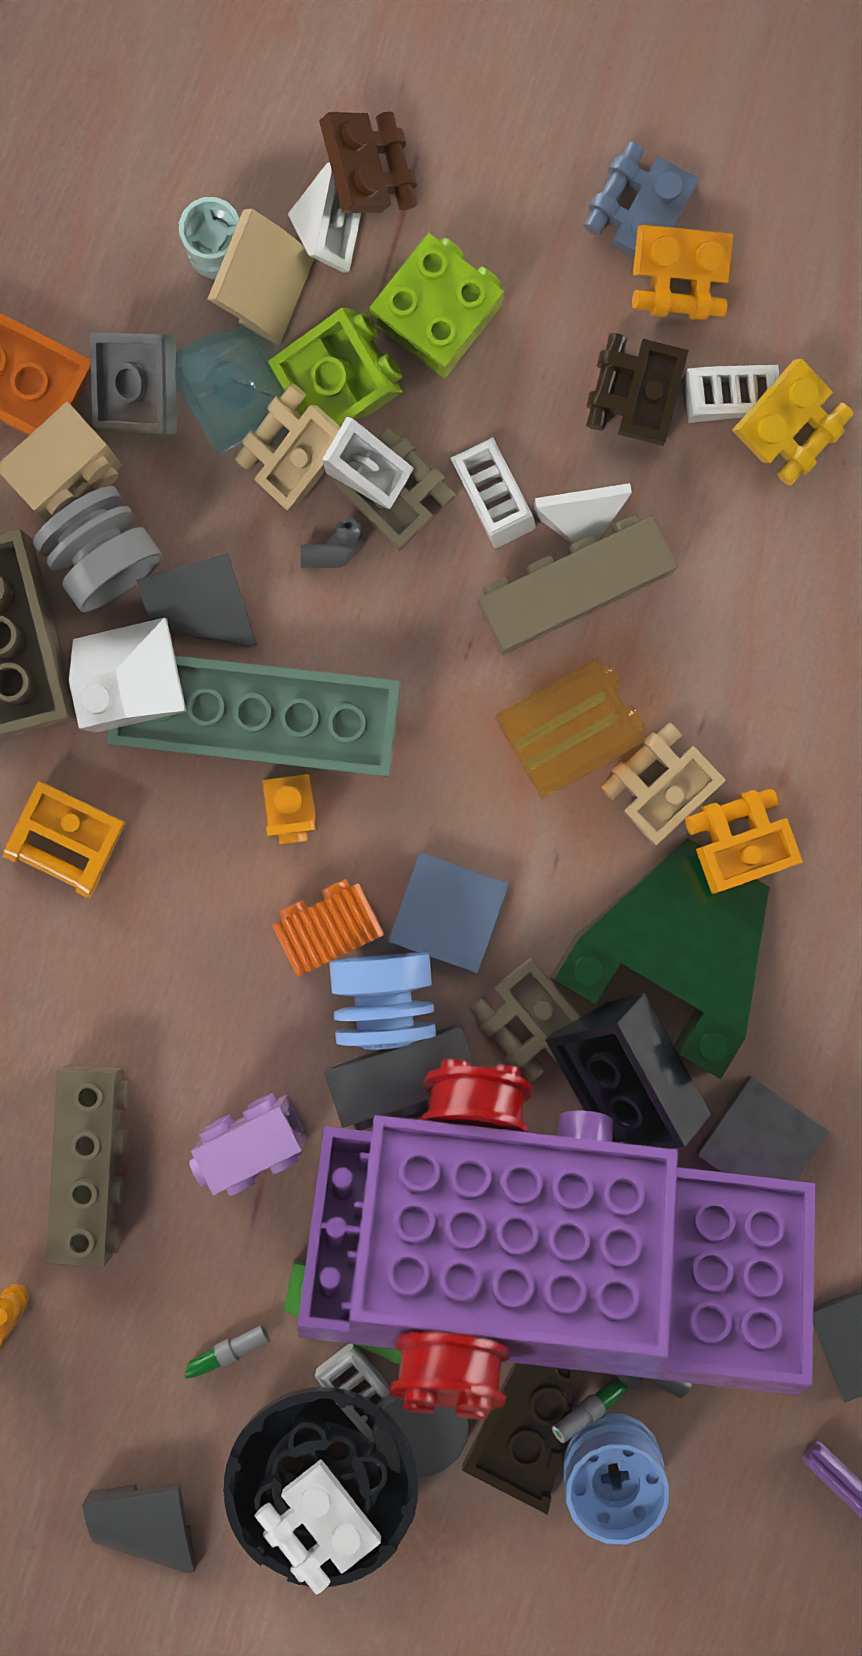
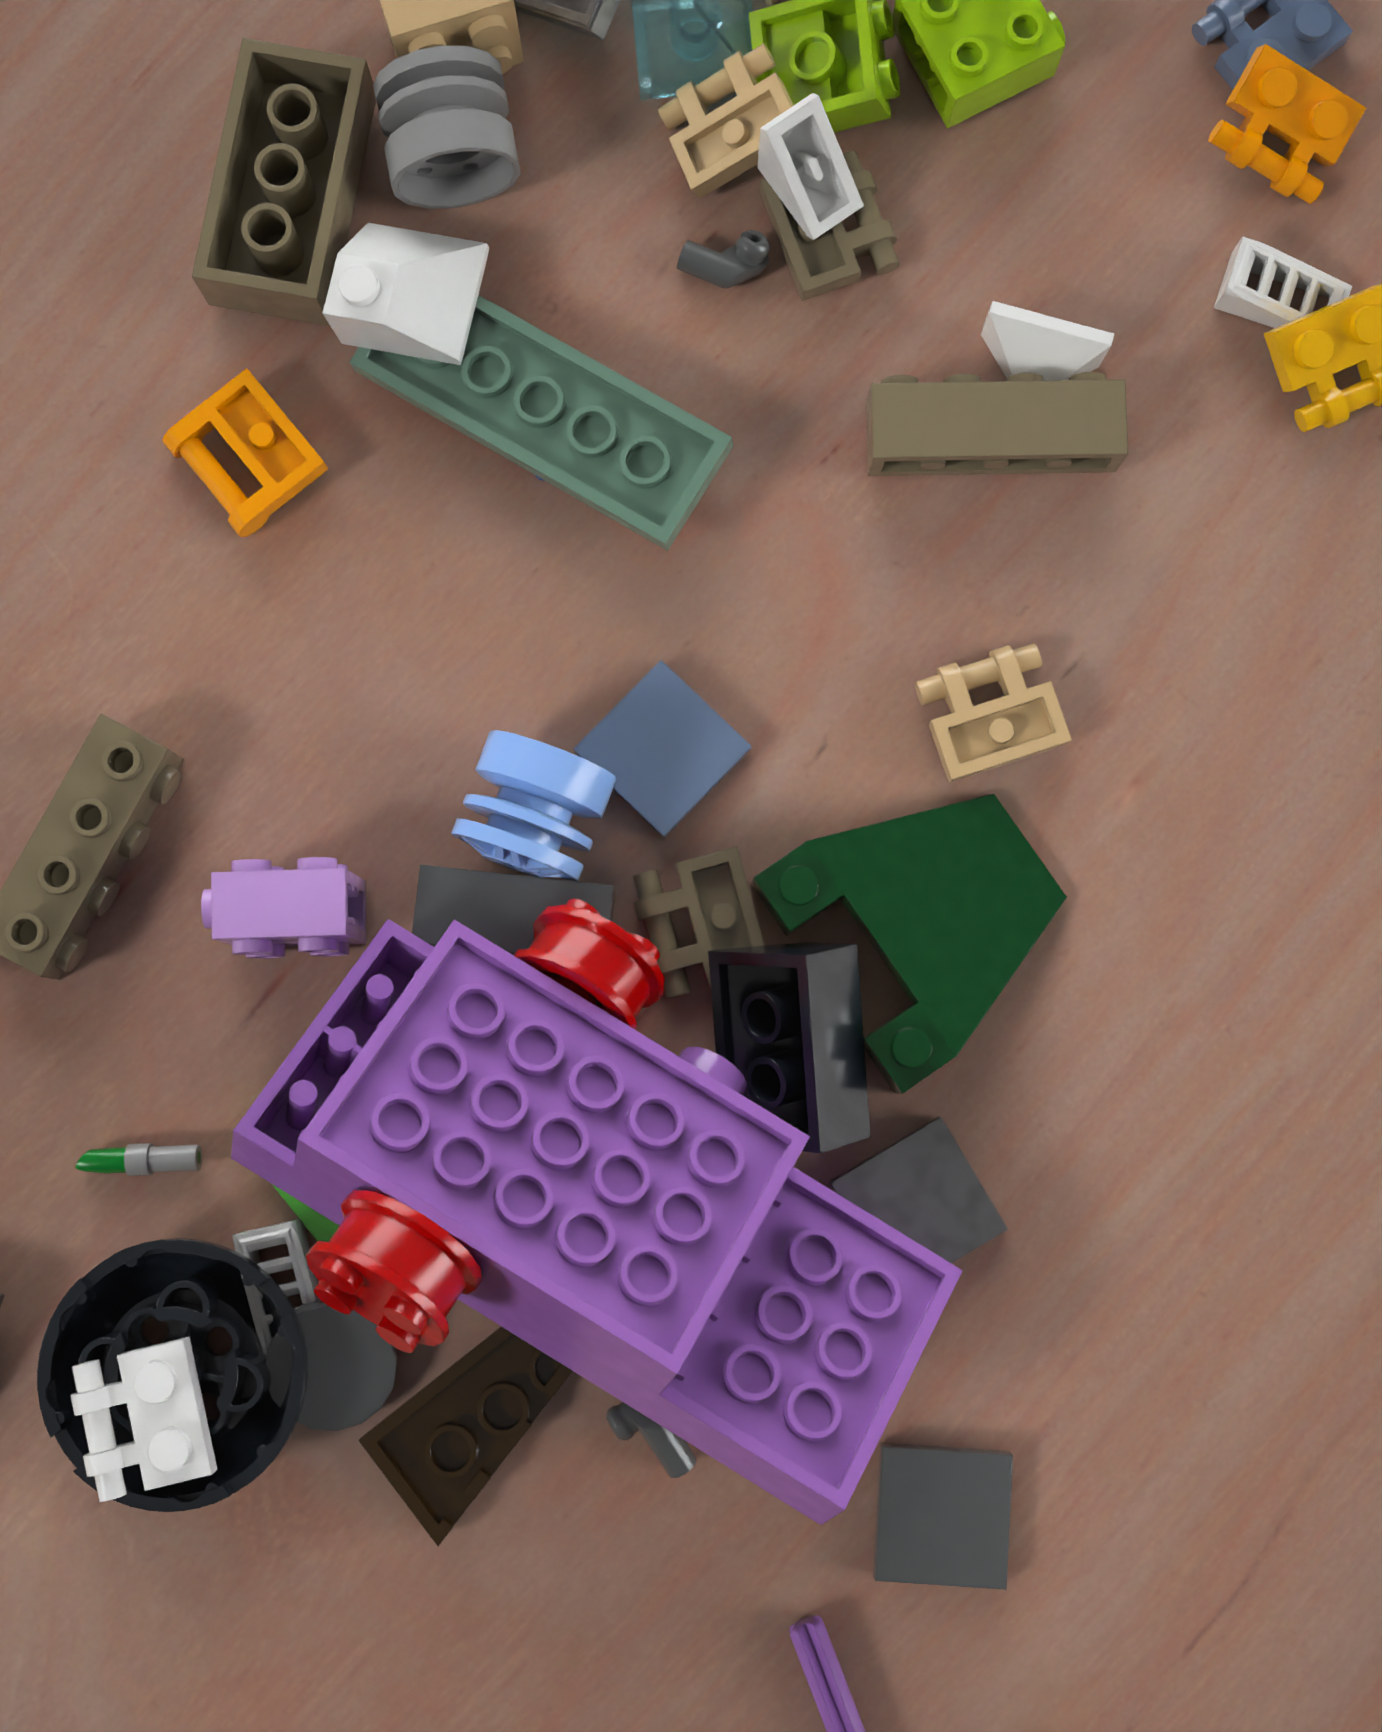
camera: 20 degrees right, 5 degrees down
(199, 601) = (538, 249): dark grey slope -> none
(289, 808) = (530, 539): light orange bracket -> none
(327, 928) = (508, 695): orange brick -> none
(510, 527) = (948, 322): white slope -> none
(571, 727) = (912, 594): clear yellow brick -> none
(589, 1410) = (551, 1438): light grey piece -> none
(618, 1504) = (534, 1574): light blue wheel -> none
(652, 390) = (1185, 251): dark brown plate -> none
(747, 855) = (1058, 841): light orange plate -> none

